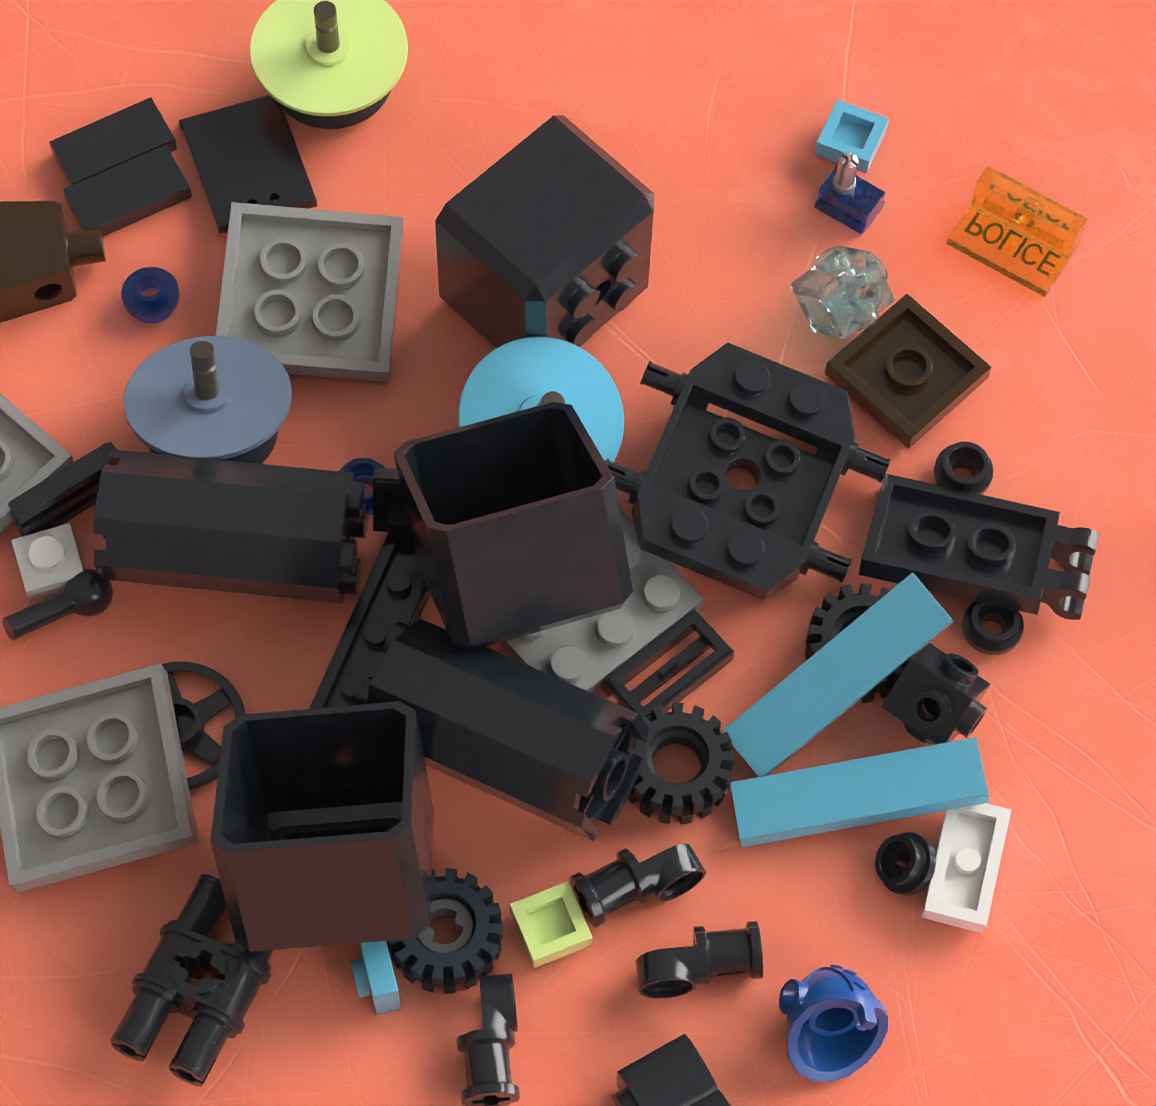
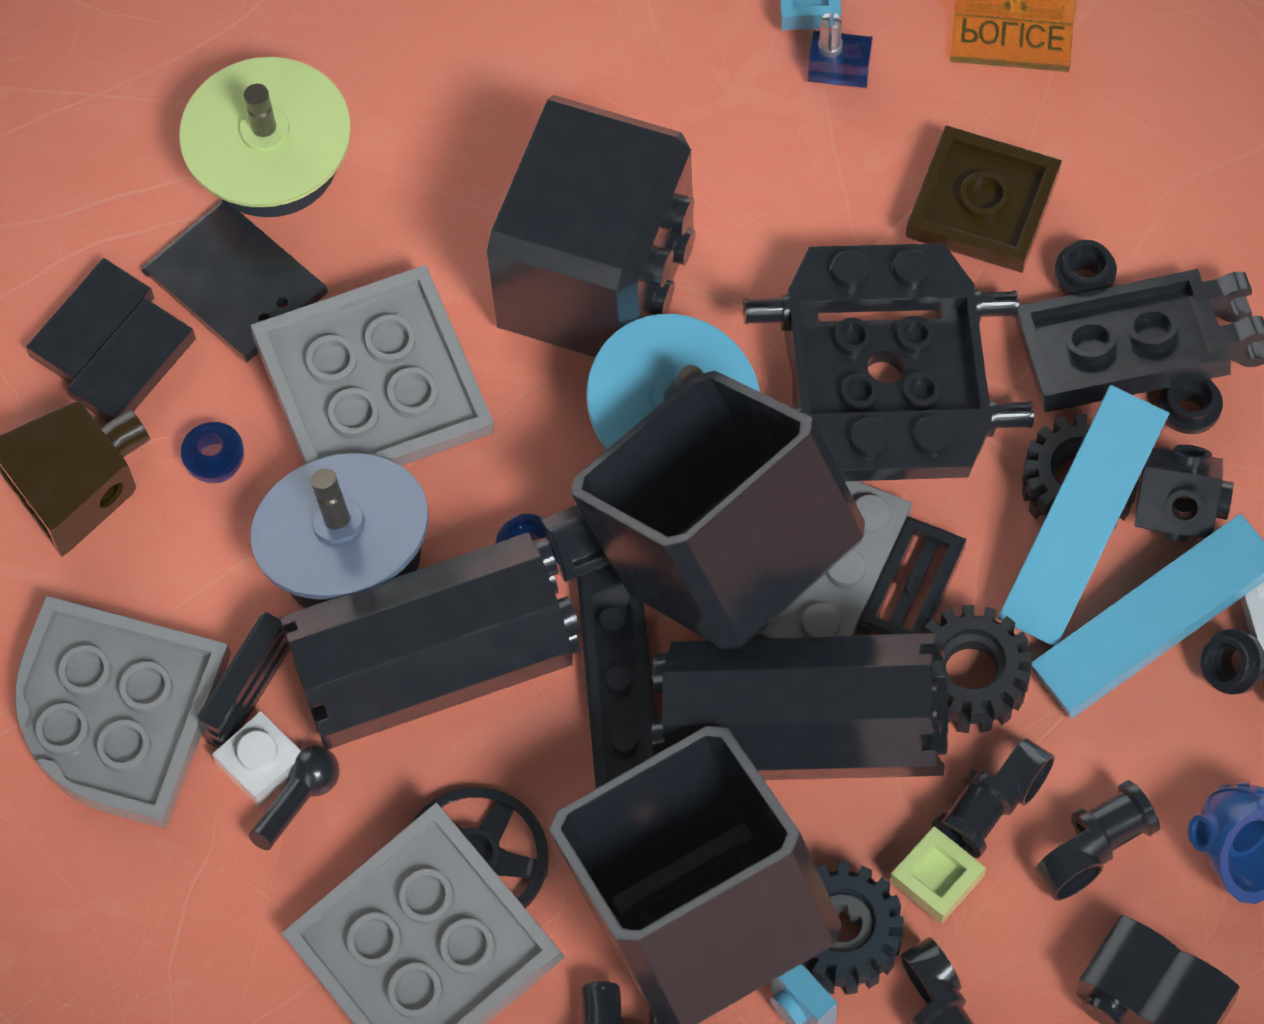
camera: 20 degrees left, 0 degrees up
(843, 291) = (886, 150): clear light blue brick -> none

